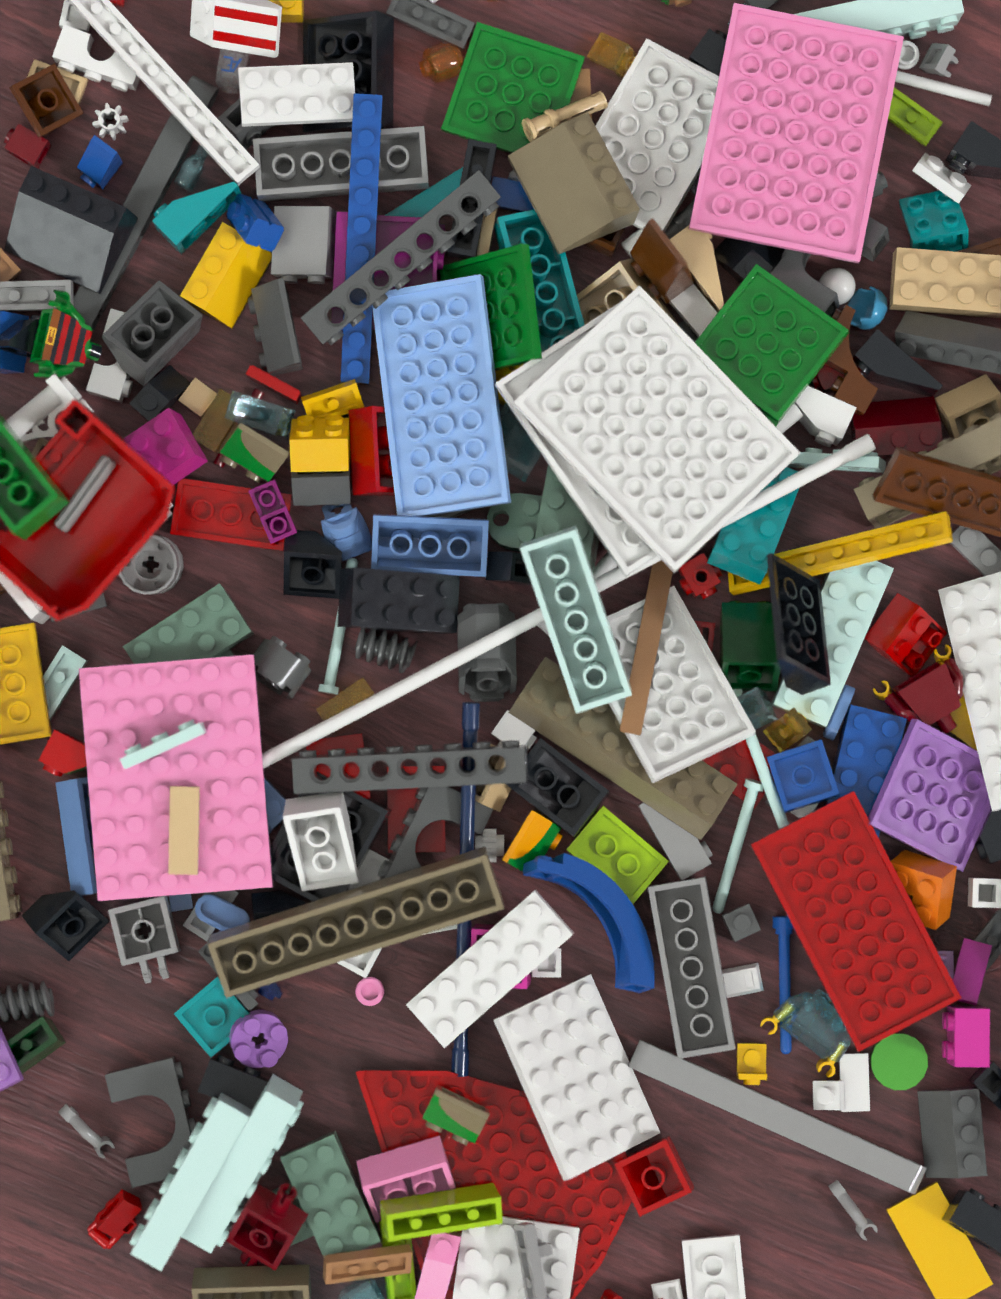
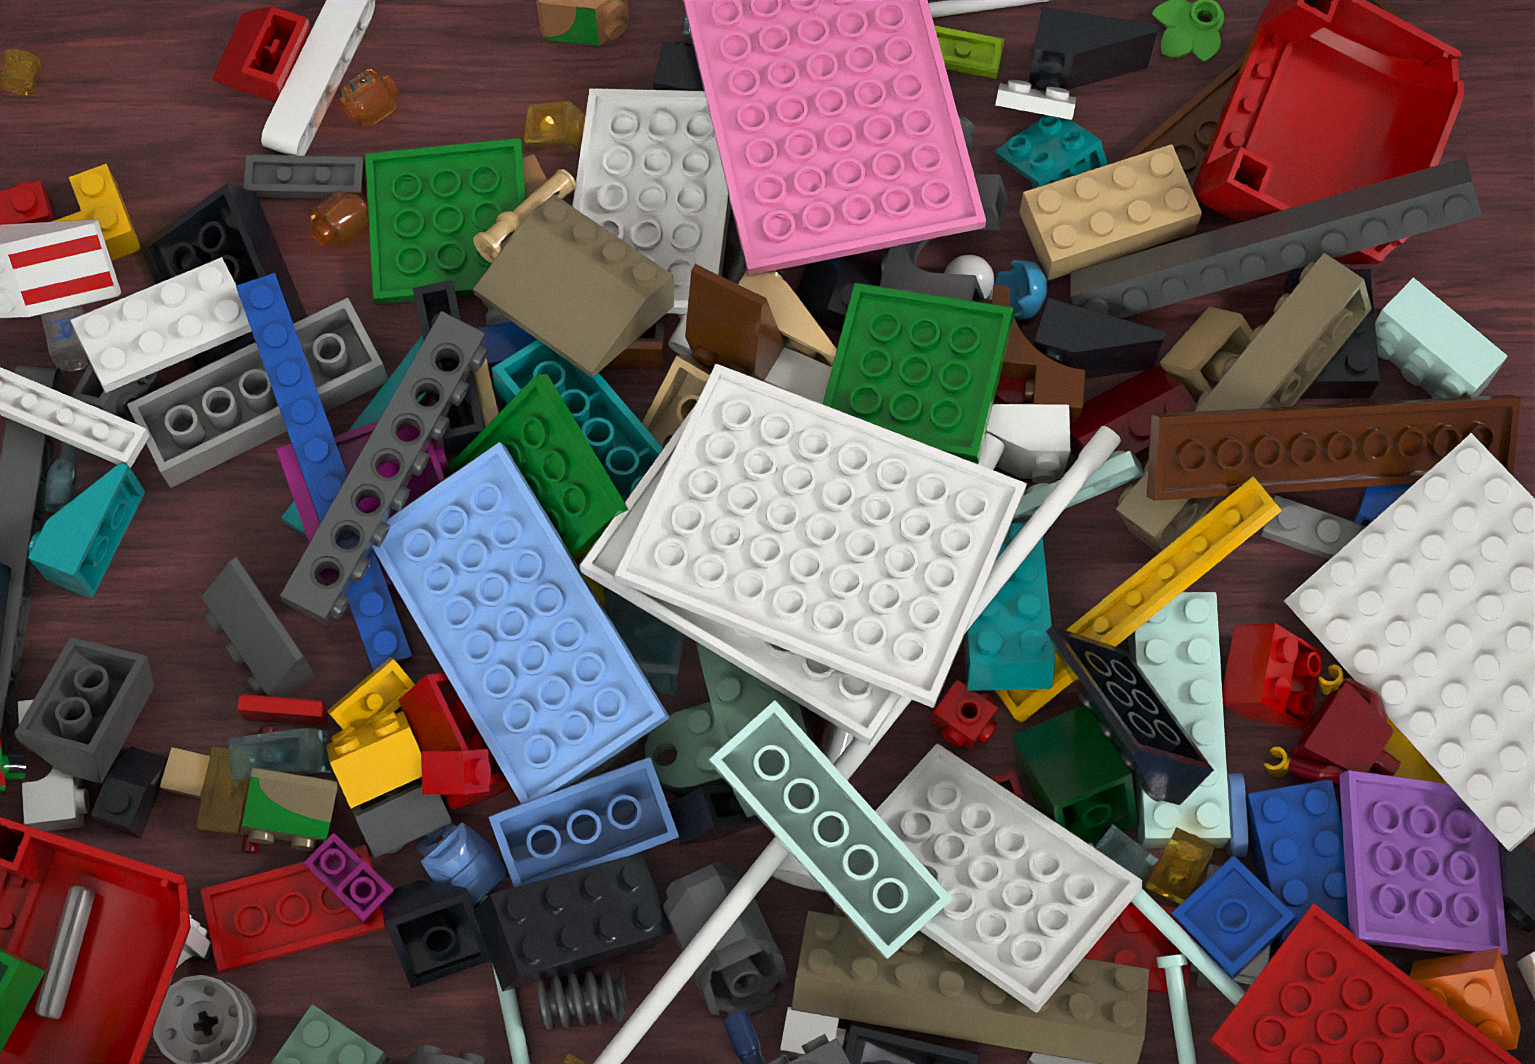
camera: 20 degrees left, 15 degrees down
(168, 445) = (173, 842): dark pink brick -> none
(226, 276) = (161, 595): yellow slope -> none
(255, 222) = (172, 508): blue brick -> none
(306, 244) = (250, 510): light grey brick -> none
(364, 477) = (455, 771): none -> red brick
(646, 648) = (940, 833): medium nougat sticker -> none

